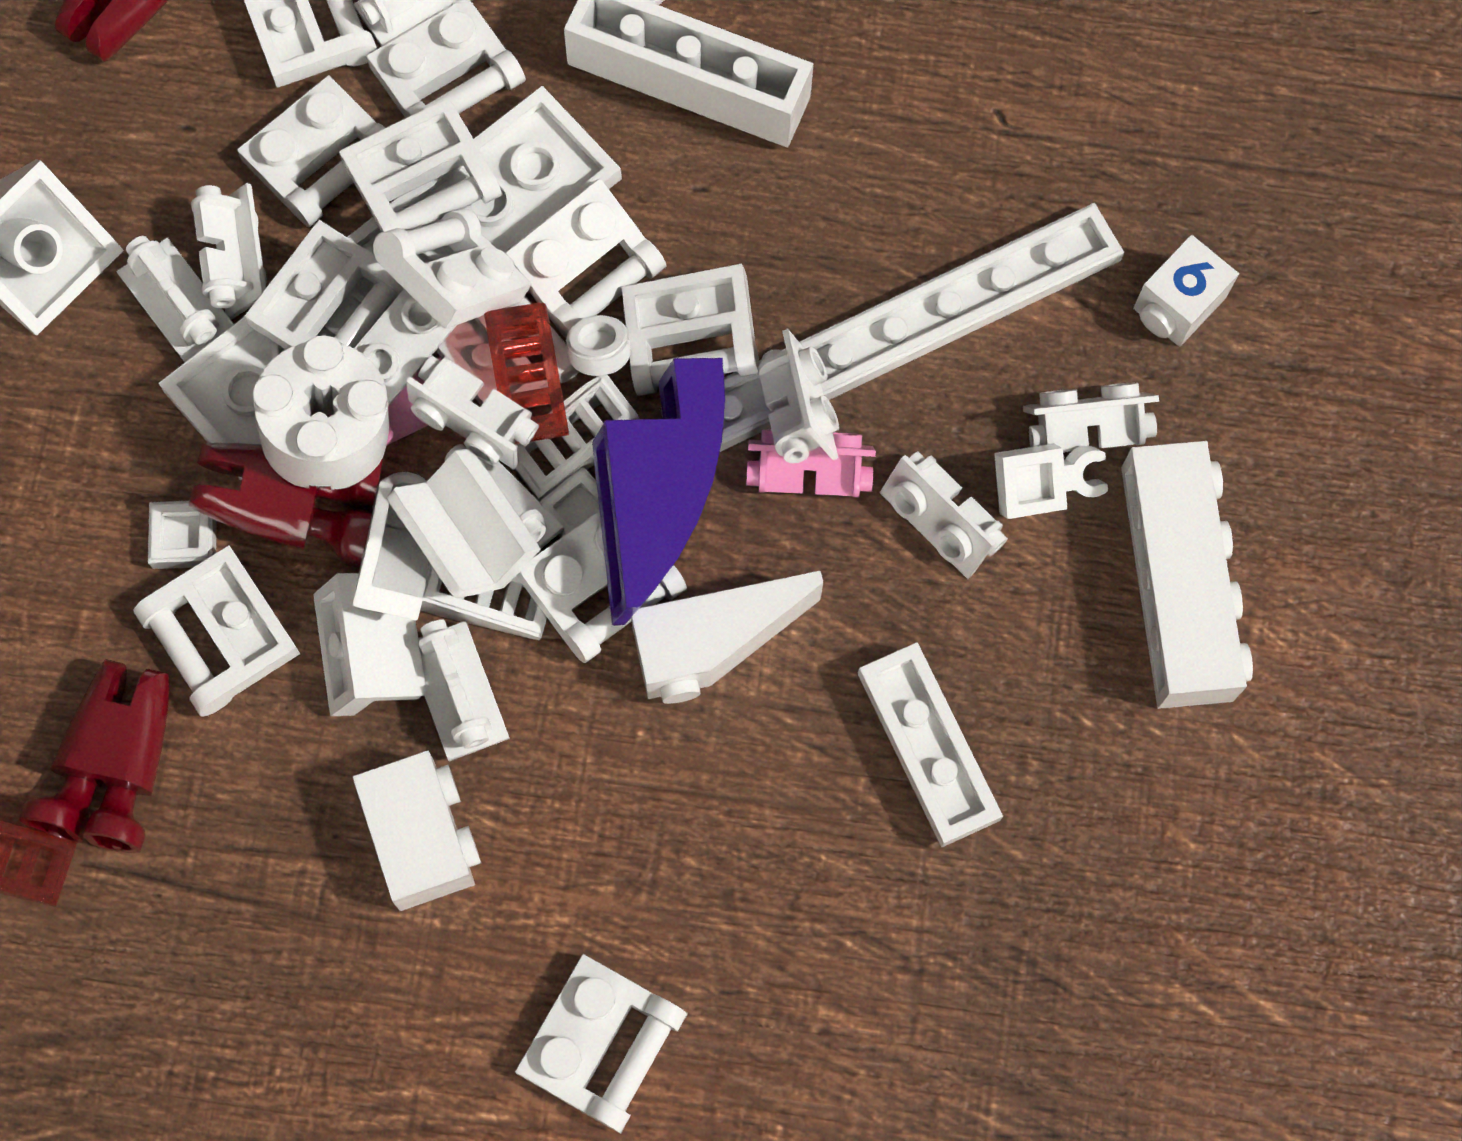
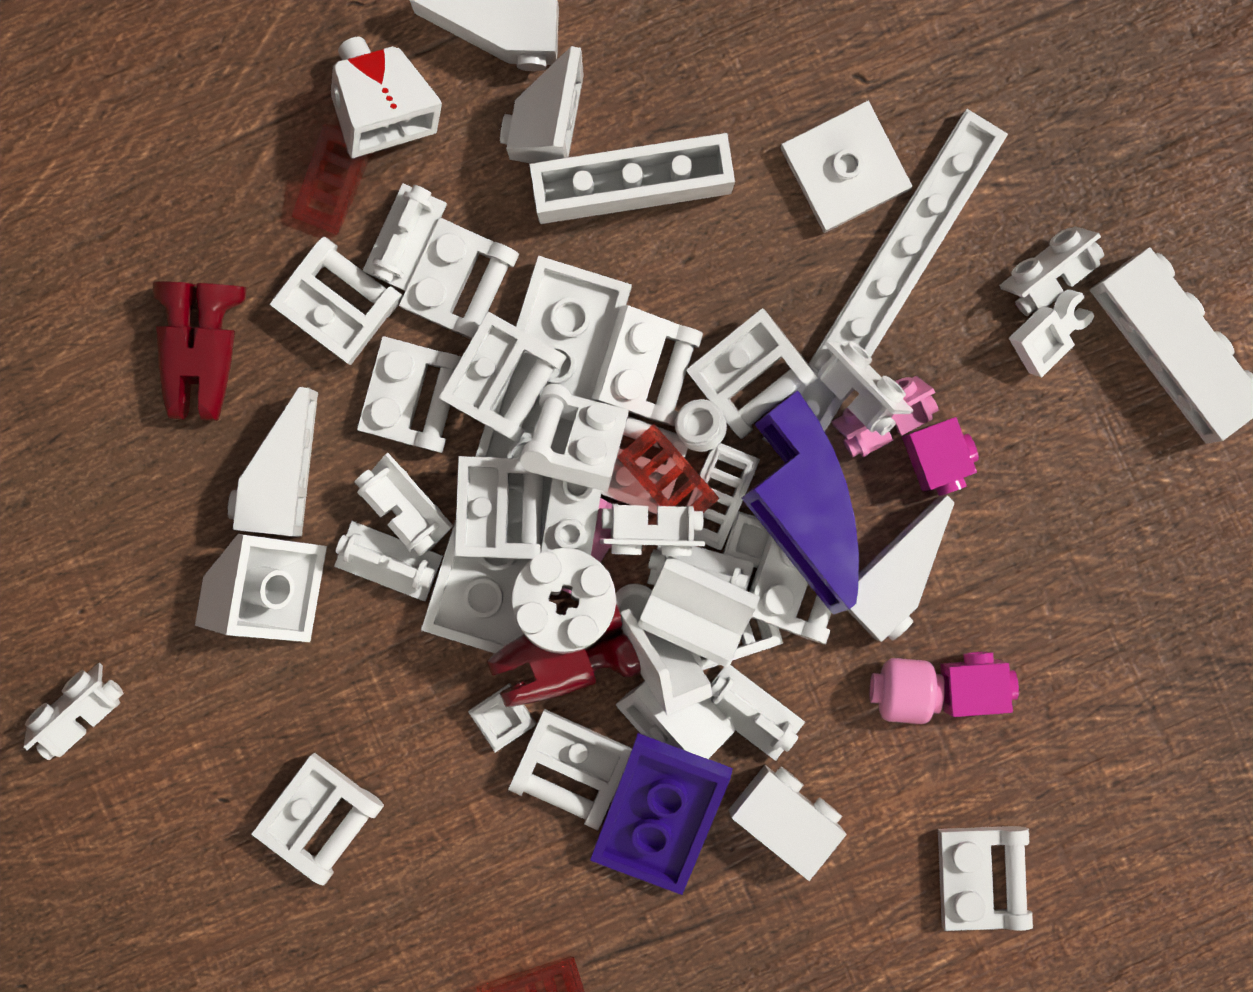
camera: 30 degrees left, 15 degrees up
(111, 747) = (558, 890): dark red piece -> none
(123, 144) = (276, 480): none -> white slope
(277, 726) = (661, 813): none -> dark purple plate
(644, 769) = (907, 691): none -> bright pink head
(728, 810) = (979, 686): none -> dark pink brick
(844, 535) = (942, 456): none -> dark pink brick
(923, 496) = (1016, 405): white hinge -> none
(928, 190) = (846, 166): none -> white plate
(929, 744) = (1079, 562): white plate -> none
(1184, 291) = (1068, 140): white brick -> none

